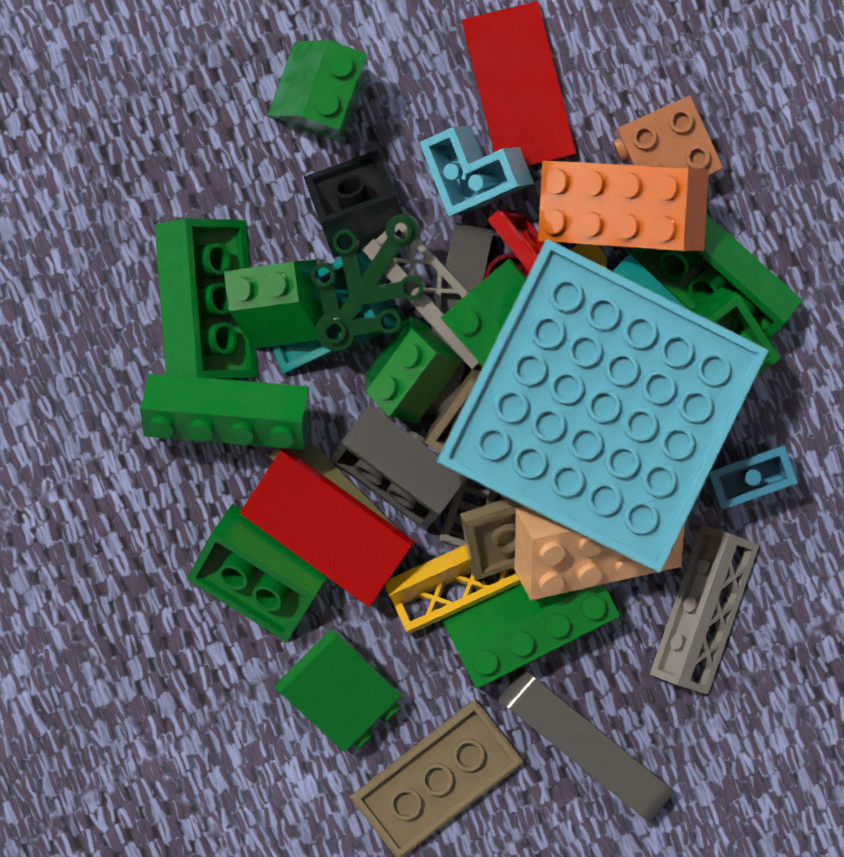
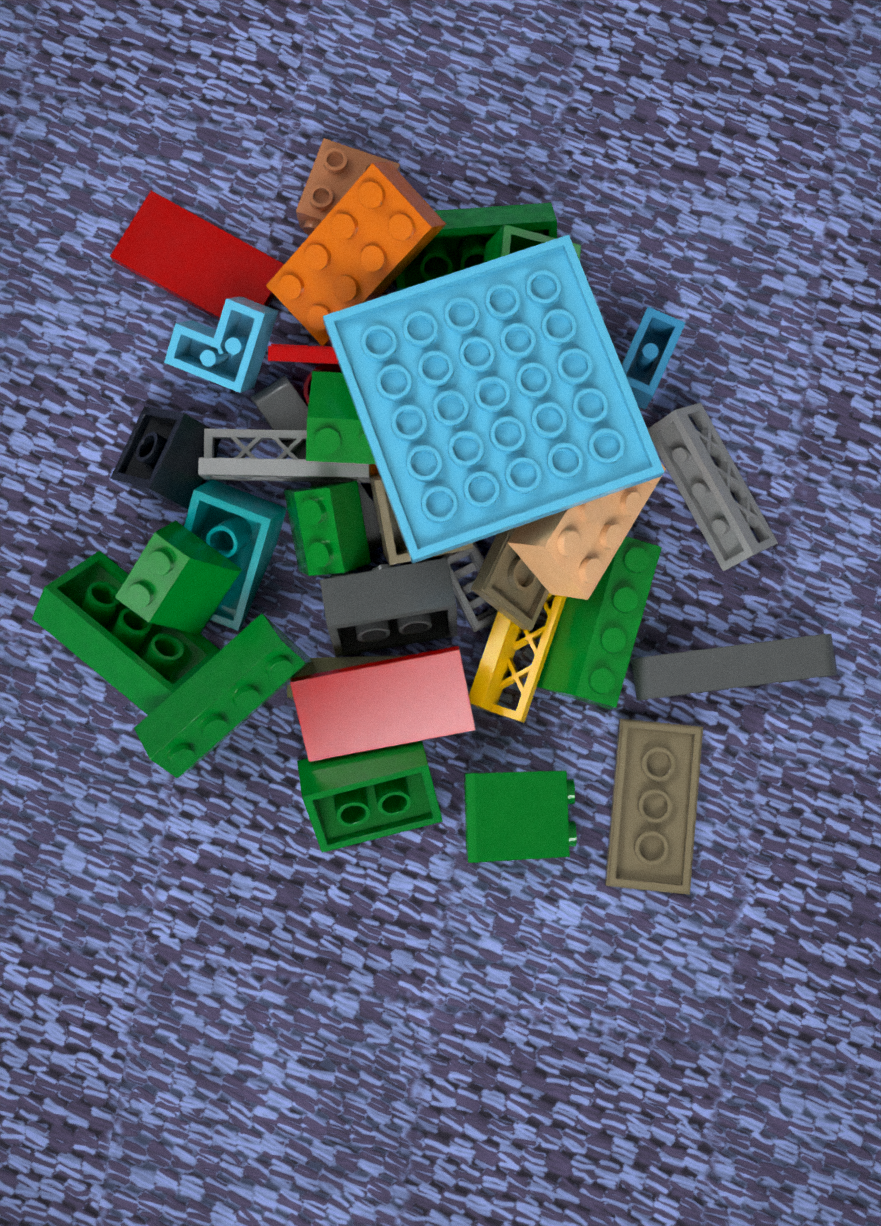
camera: 40 degrees left, 5 degrees down
(320, 87) = (54, 396): green slope -> none
(363, 288) = (228, 501): dark green plant -> none

